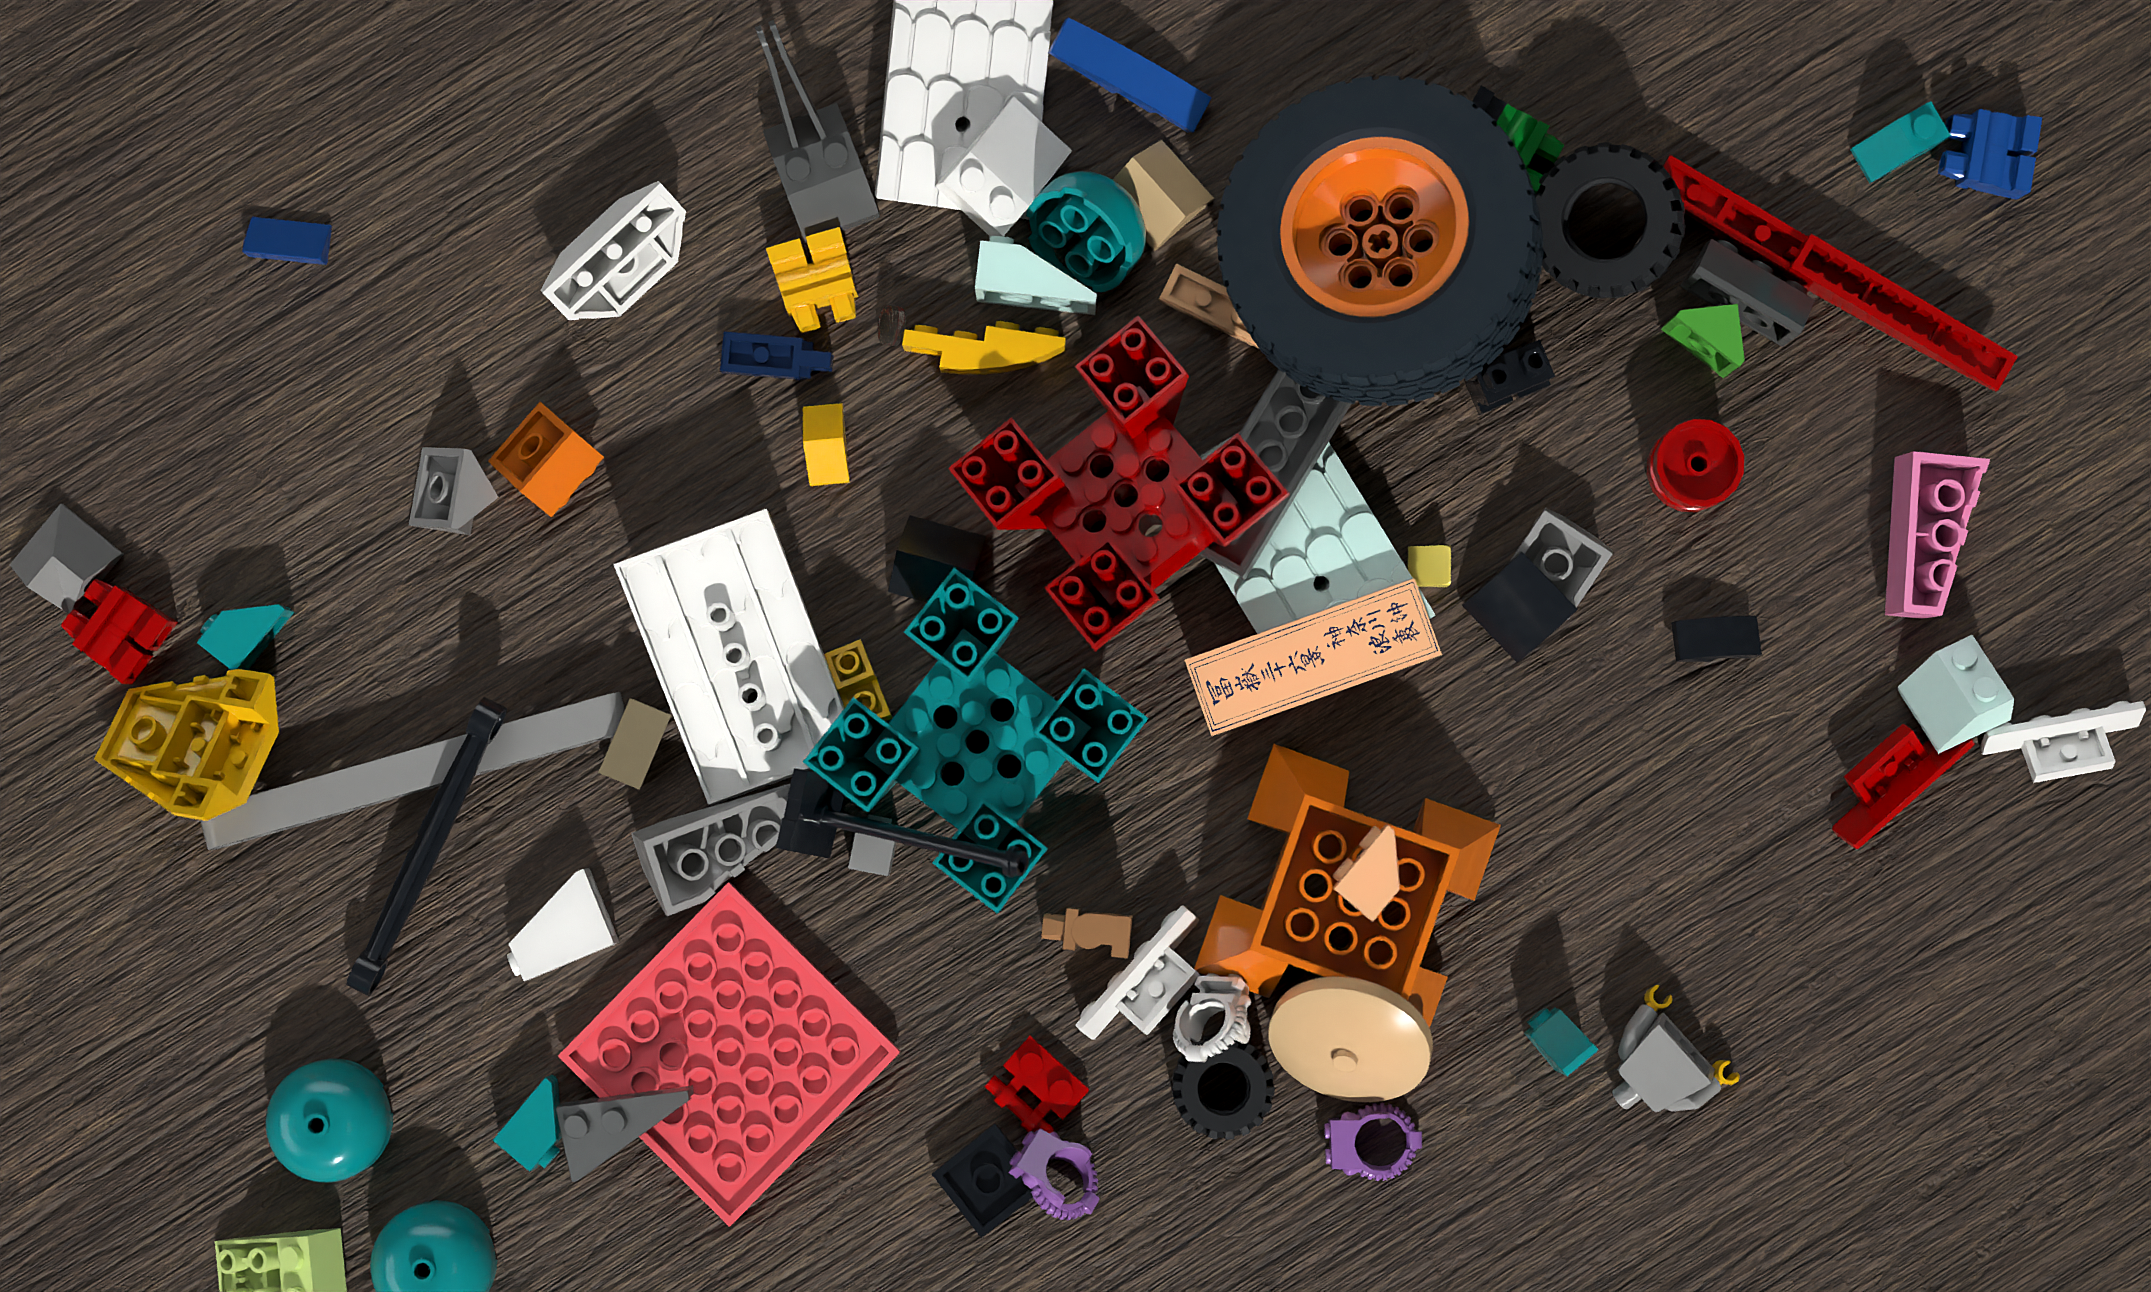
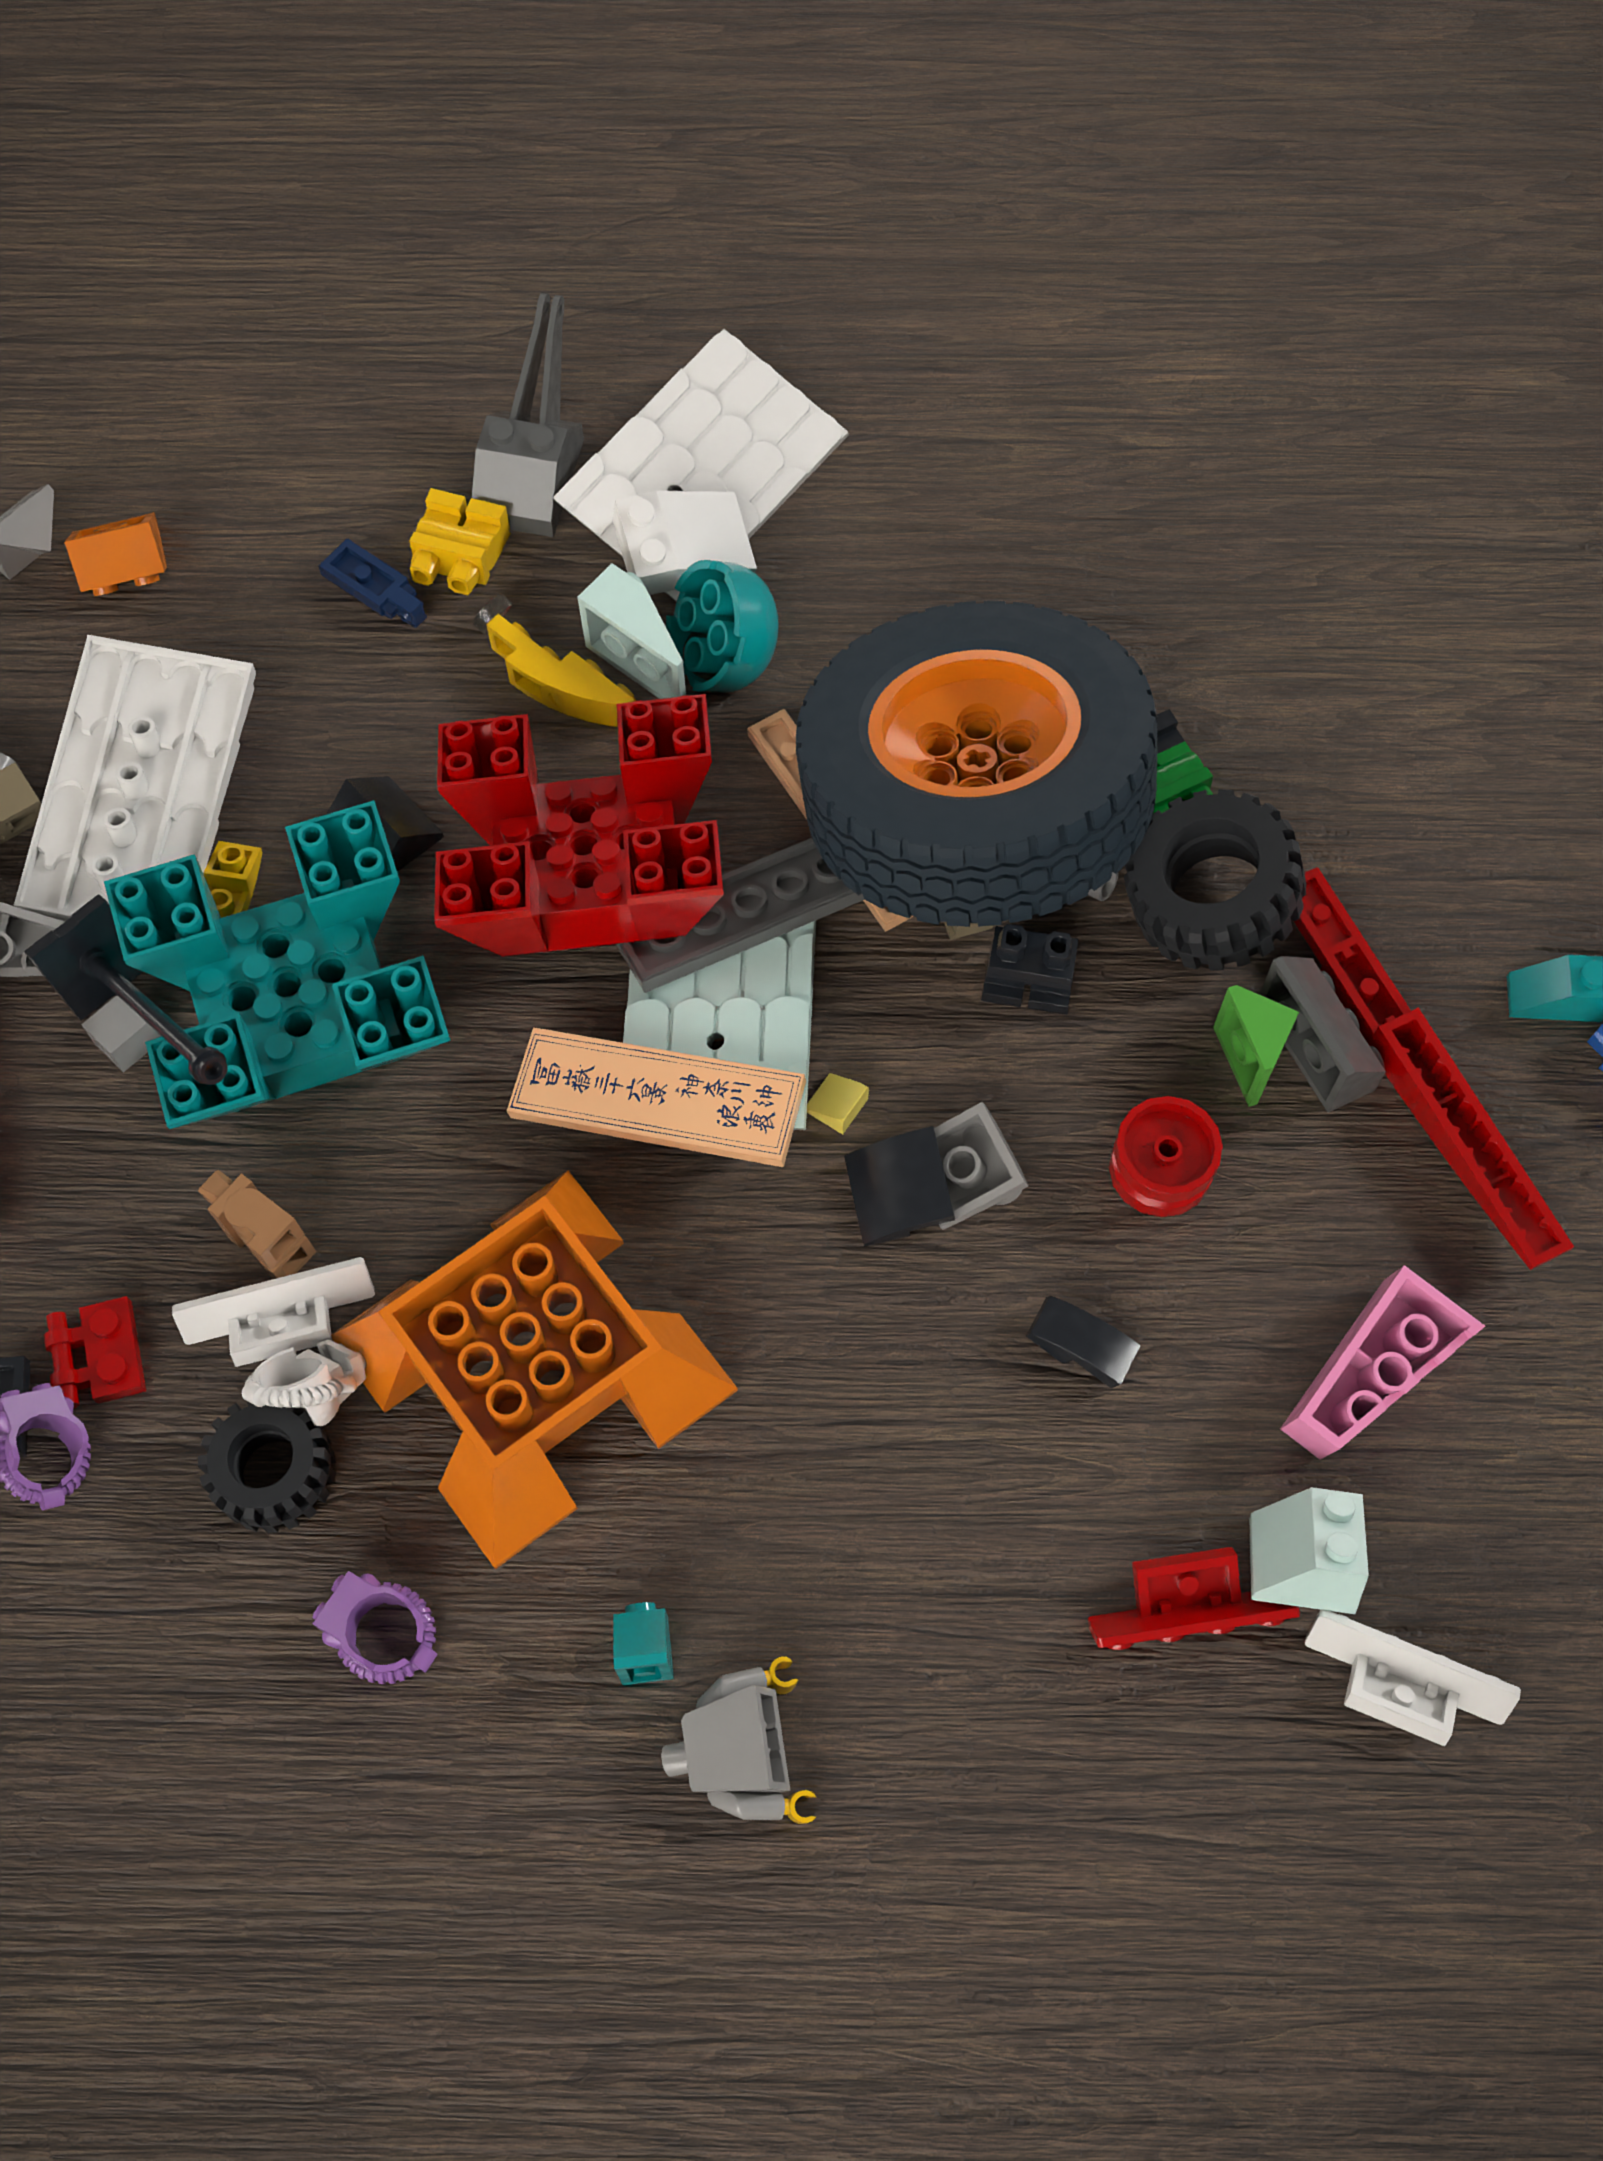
camera: 35 degrees right, 20 degrees down
(287, 240) = (58, 289): blue slope -> none
(618, 256) = (304, 434): white wedge -> none
(825, 444) = (359, 677): yellow slope -> none
(1129, 75) = (852, 538): blue slope -> none
(1163, 191) = (808, 638): tan slope -> none
(1350, 1039) = (422, 1486): tan dish -> none
(1373, 876) = (550, 1307): light nougat slope -> none

